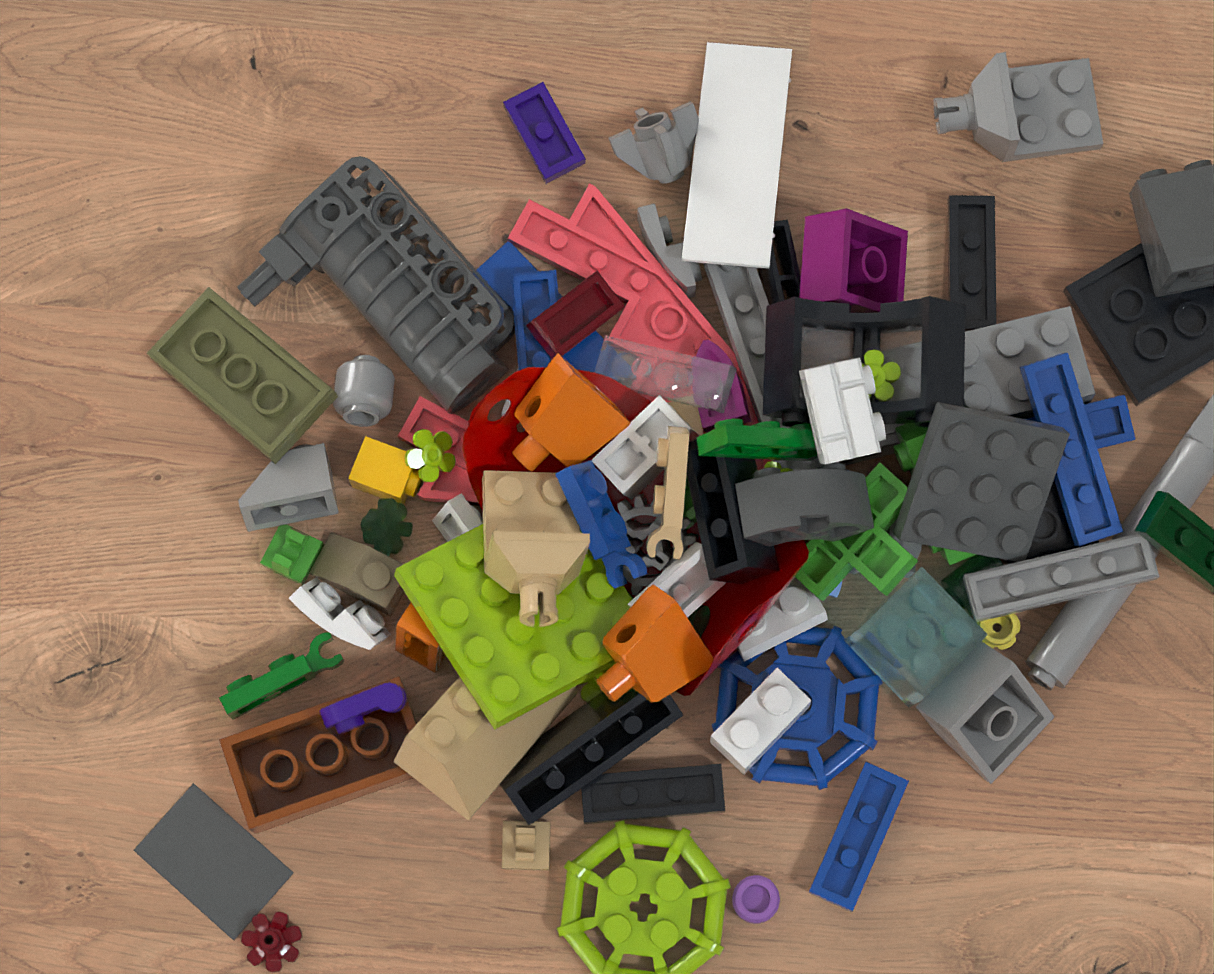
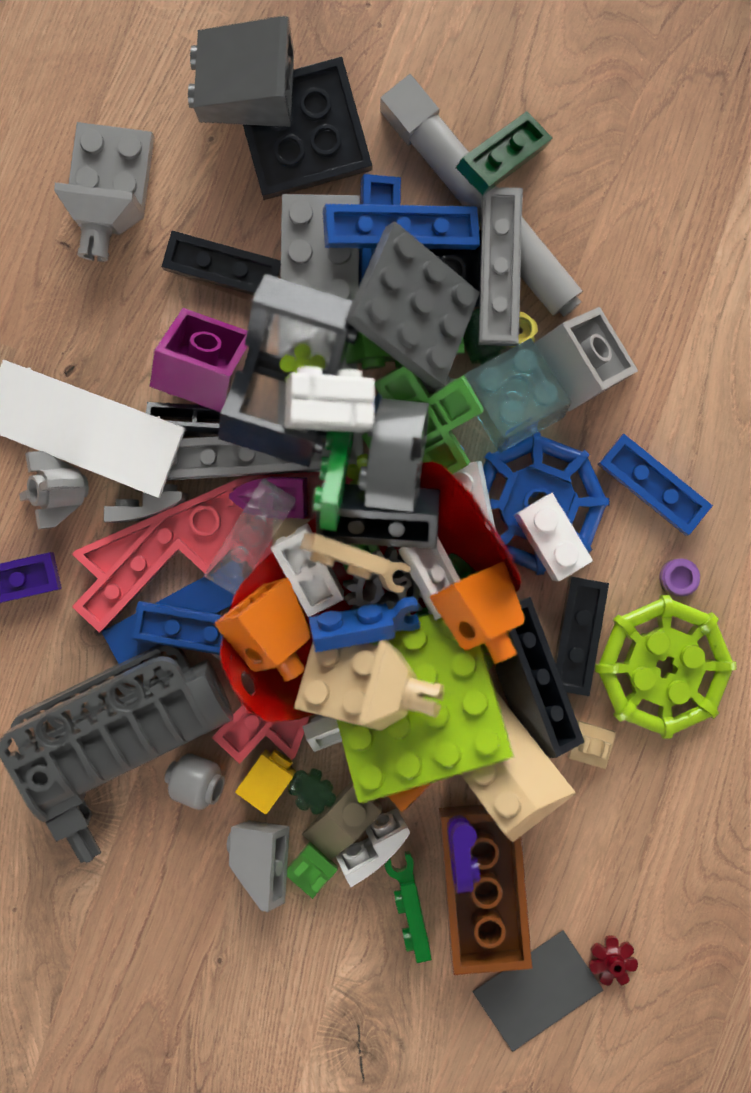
camera: 80 degrees left, 10 degrees up
(242, 375) = (156, 877): olive tile -> none
(431, 454) = (264, 743): lime plant -> none
(575, 315) = (181, 596): dark red tile -> none

